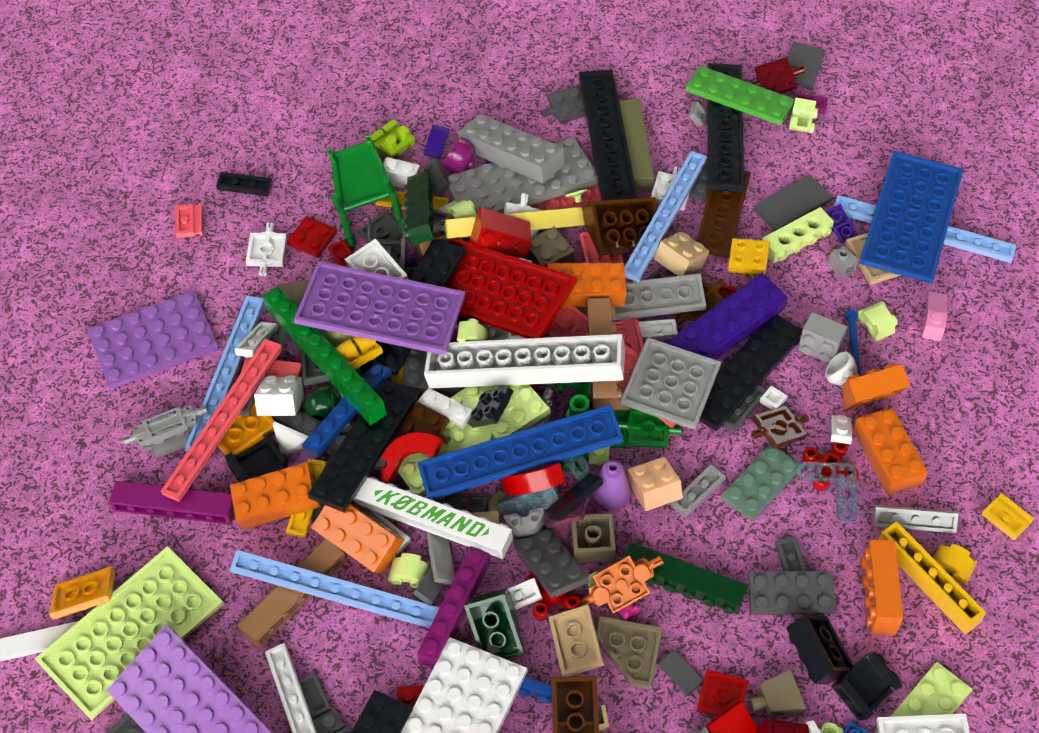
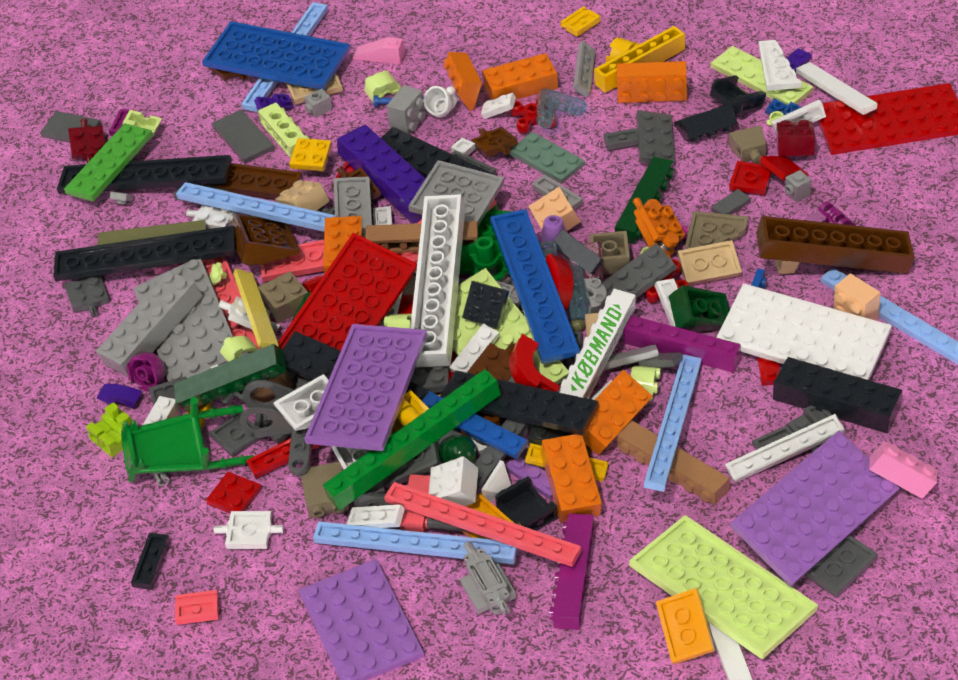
camera: 85 degrees left, 10 degrees down
(501, 233) = (274, 311): red slope -> none

